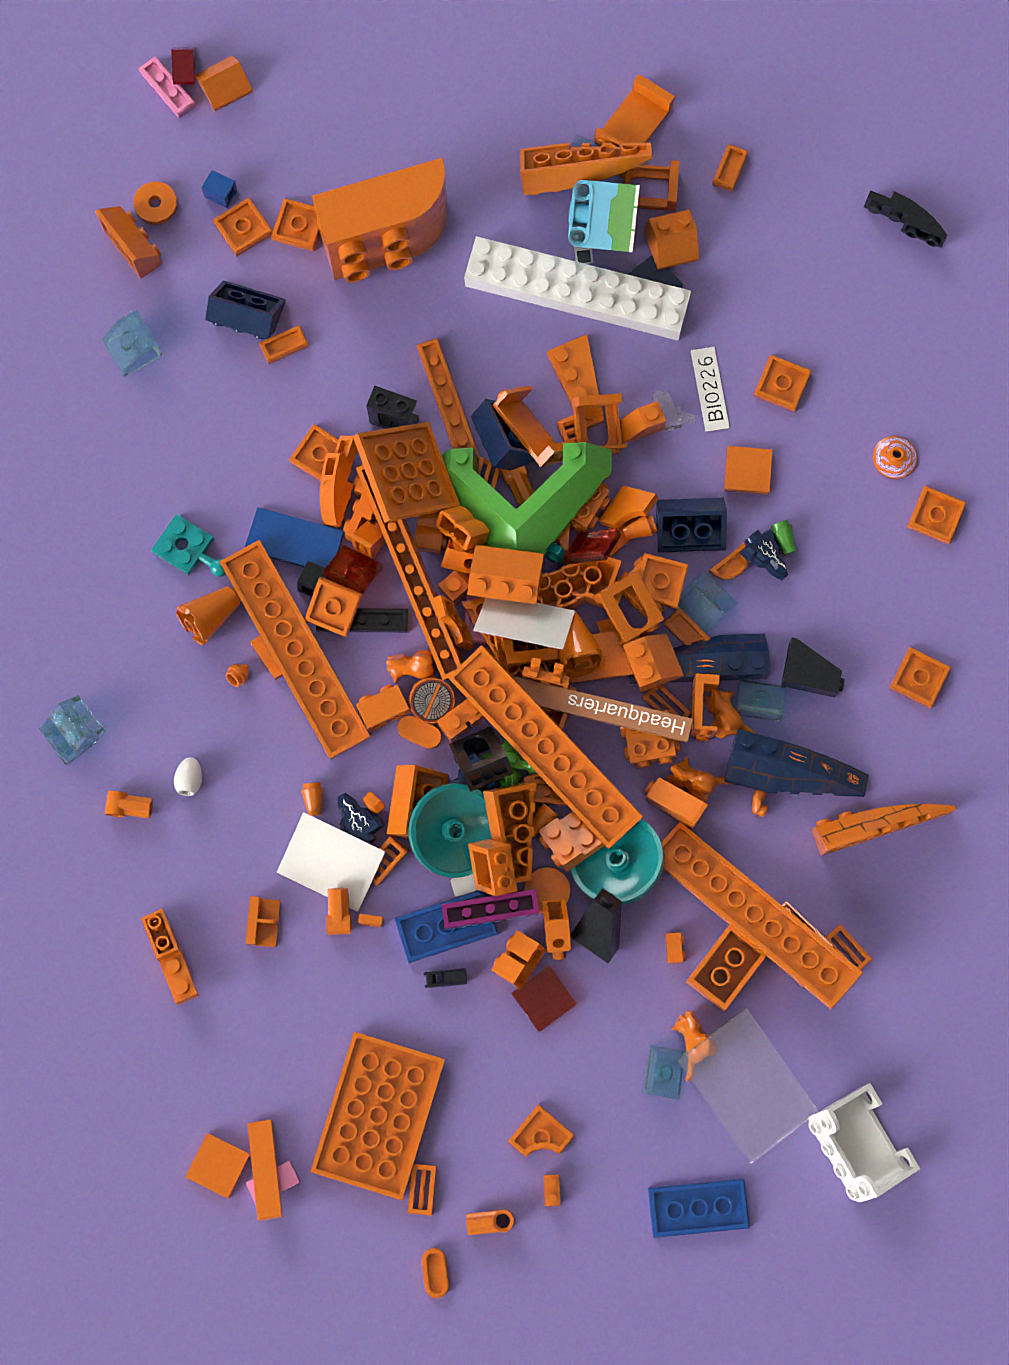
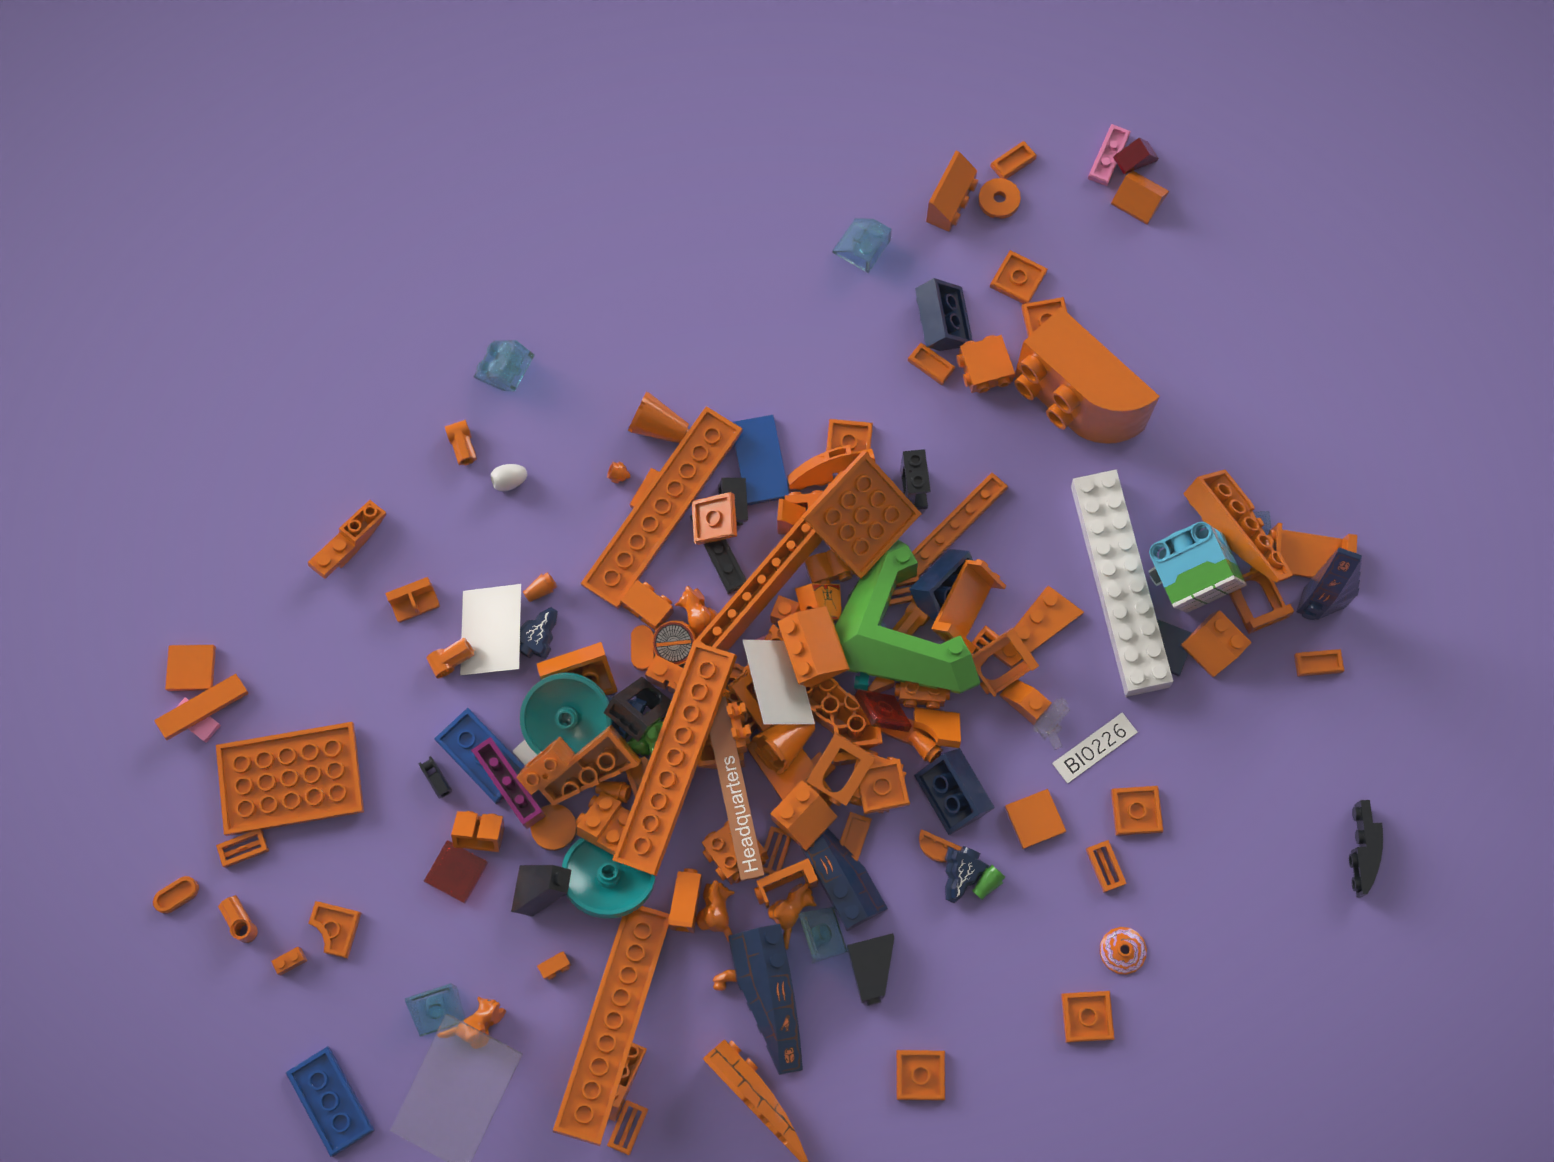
camera: 65 degrees right, 5 degrees down
(124, 171) = (1013, 160): none -> orange tile
(186, 559) = (715, 384): teal plate -> none
(219, 189) = (1040, 241): blue panel -> none
(313, 296) = (985, 364): none -> orange brick
(353, 569) = (757, 519): clear red tile -> none
(370, 920) = (455, 688): orange tile -> none
(373, 803) = (559, 639): orange tile -> none
(397, 858) = (528, 679): orange slope -> none
(449, 615) = (753, 618): orange tile -> none
(462, 527) = (839, 589): orange brick -> none
(556, 928) = (513, 852): orange torso -> none
(678, 117) = (1332, 586): none -> dark blue wedge
(706, 602) = (889, 840): clear light blue slope -> none
(725, 968) = (552, 1019): orange brick -> none
(816, 441) = (1096, 867): none -> orange tile

